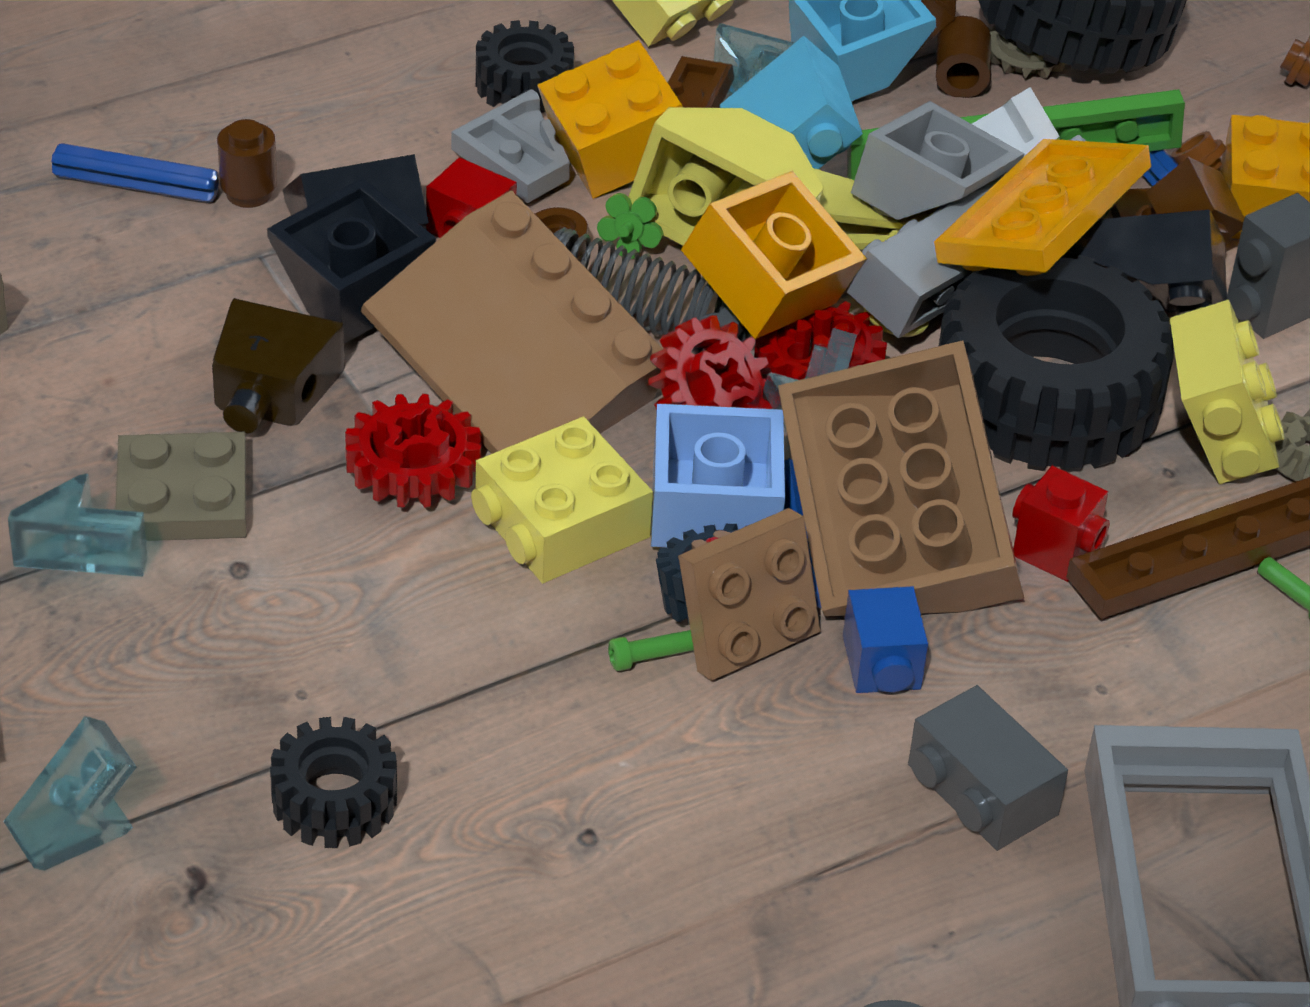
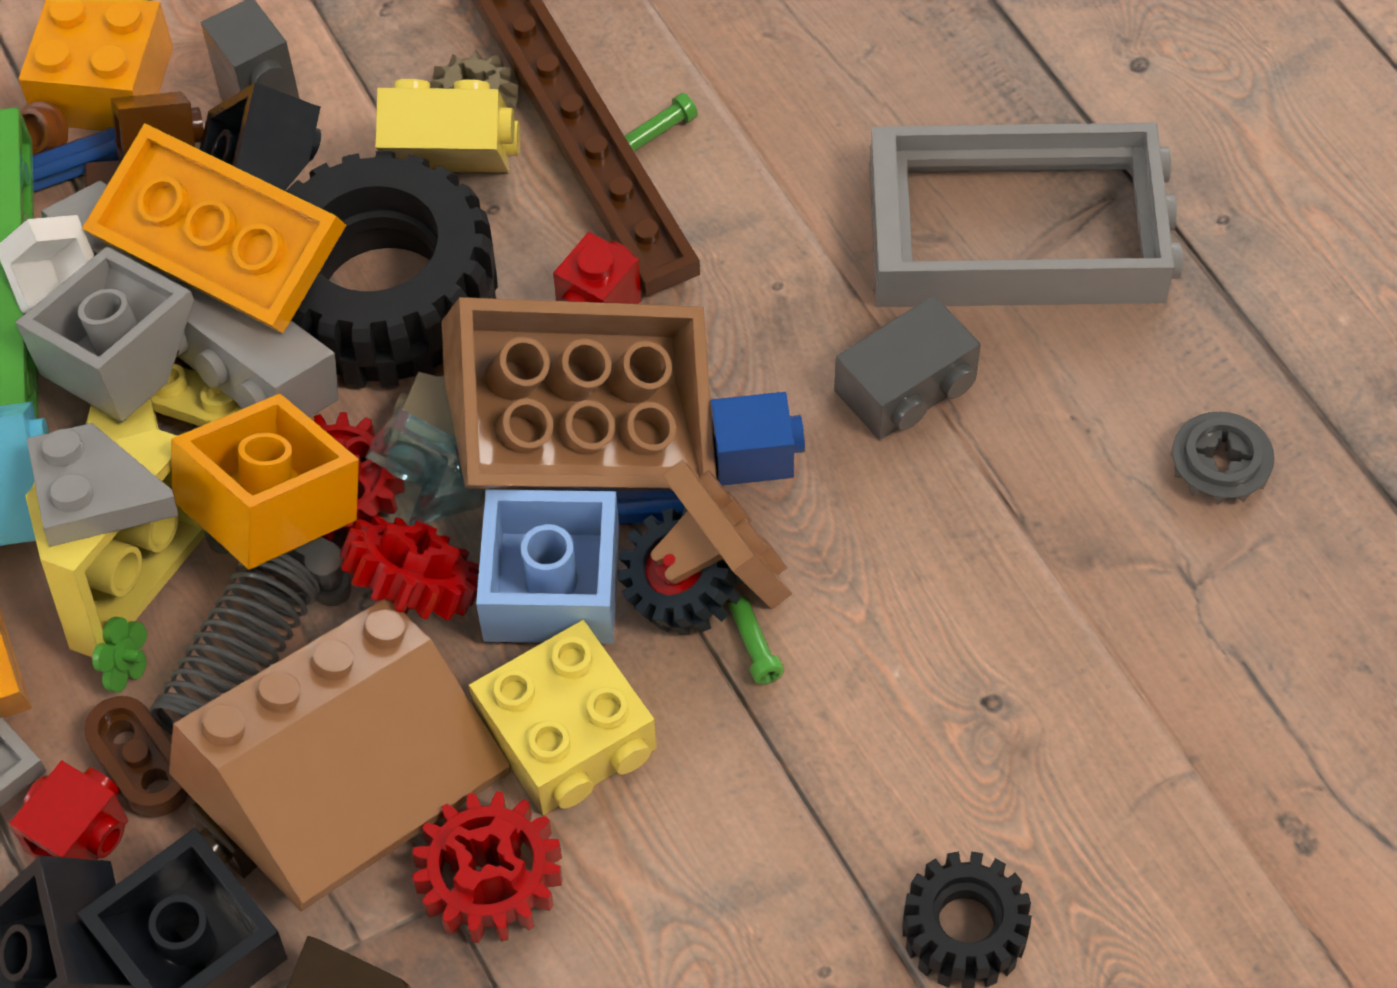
camera: 85 degrees left, 15 degrees up
(746, 132) = (93, 485): none -> light grey wing

